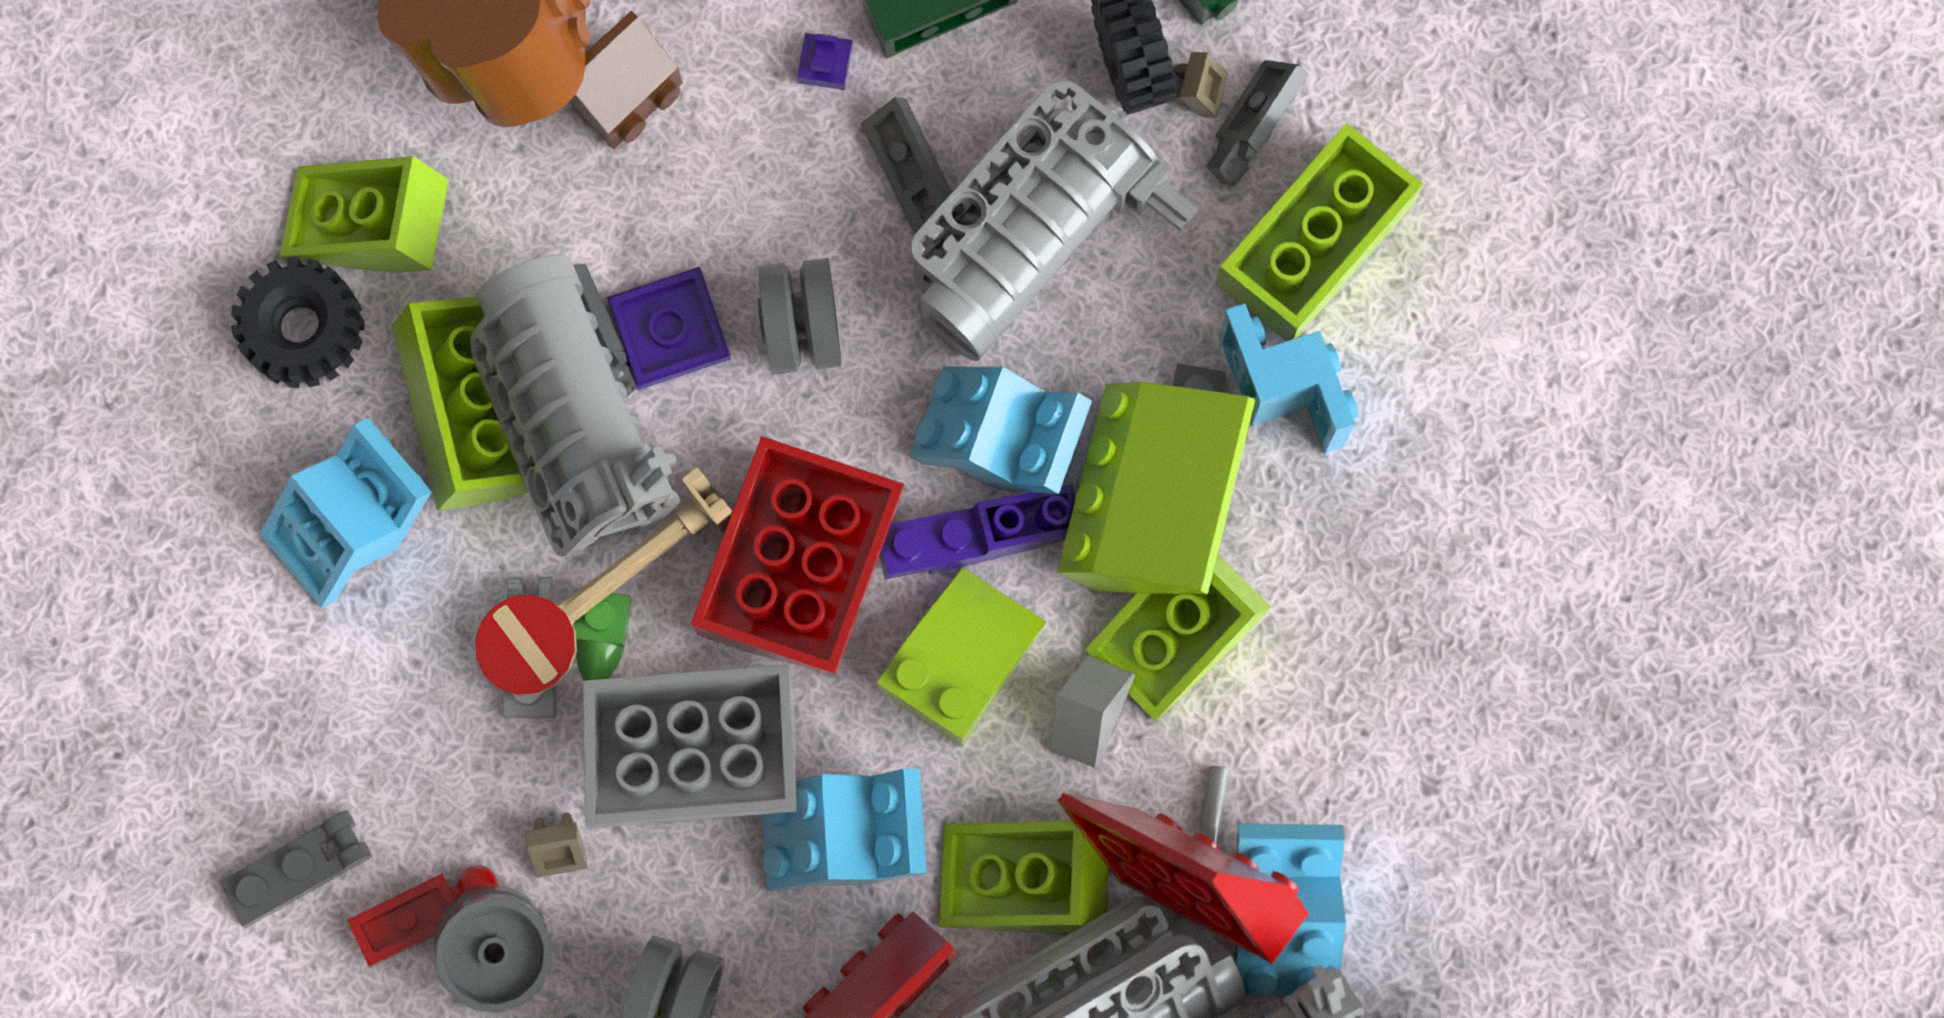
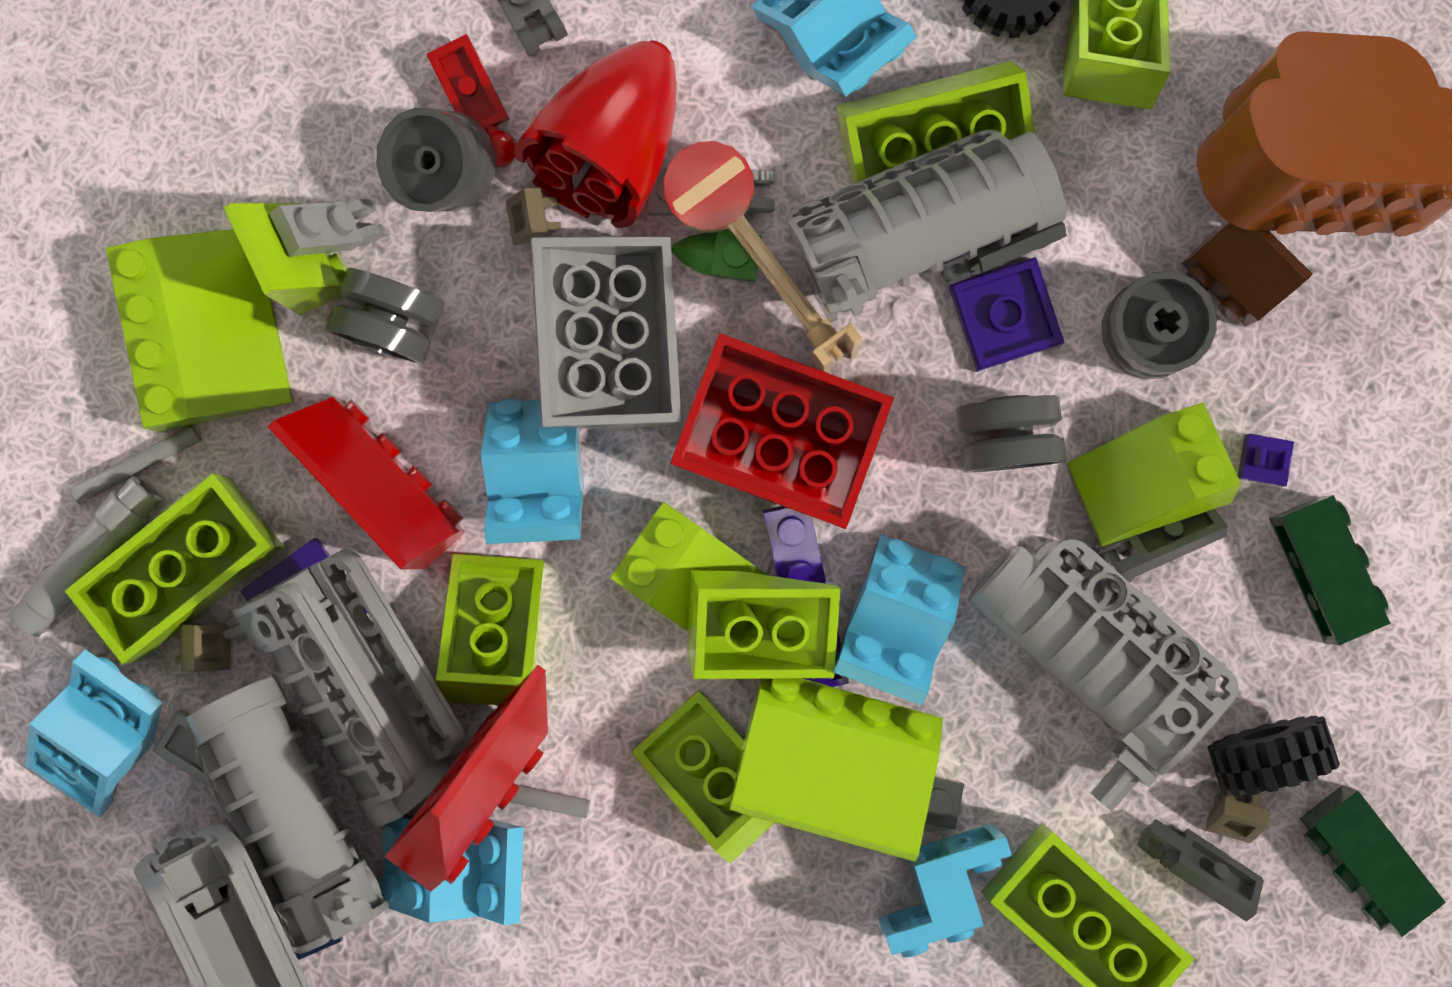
camera: 90 degrees right, 10 degrees up
(462, 753) = (618, 121): none -> red cylinder
(675, 142) = (1185, 322): none -> dark grey wheel
(843, 170) = (1155, 475): none -> lime slope
(1011, 573) = (761, 626): none -> lime slope
(1089, 710) = (641, 693): light grey slope -> none

